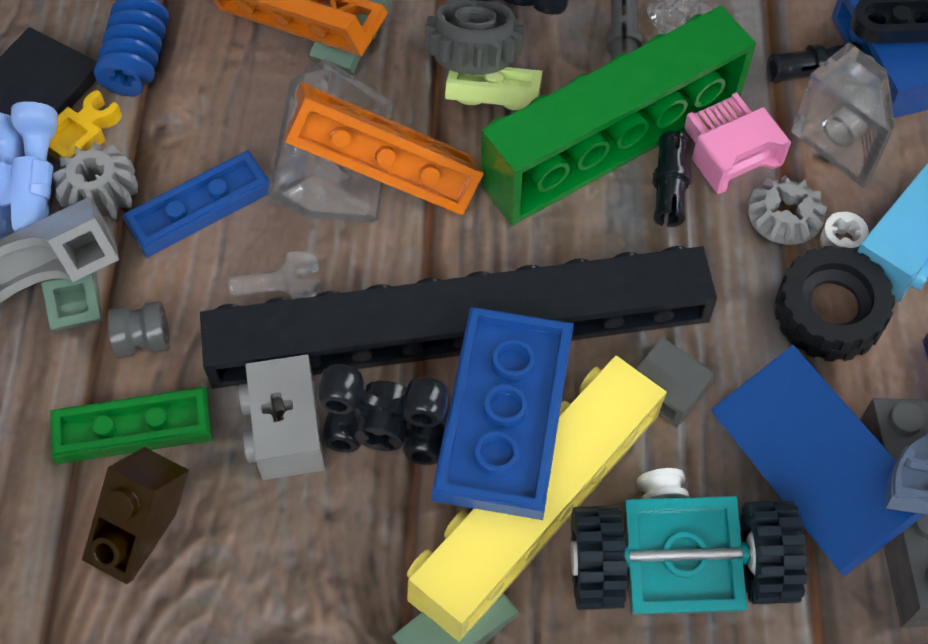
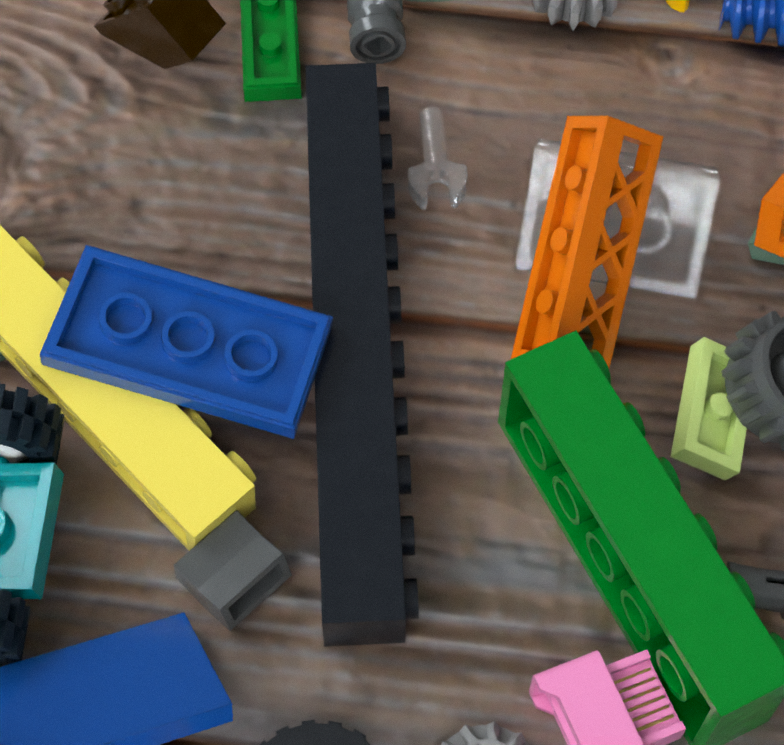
camera: 95 degrees right, 0 degrees up
(196, 203) = (542, 72): blue tile -> none
(286, 445) = (245, 152): light grey brick -> none
(383, 414) = (216, 220): black gear -> none
(662, 484) = (83, 533): white bush -> none
(671, 179) = (549, 623): black pin -> none

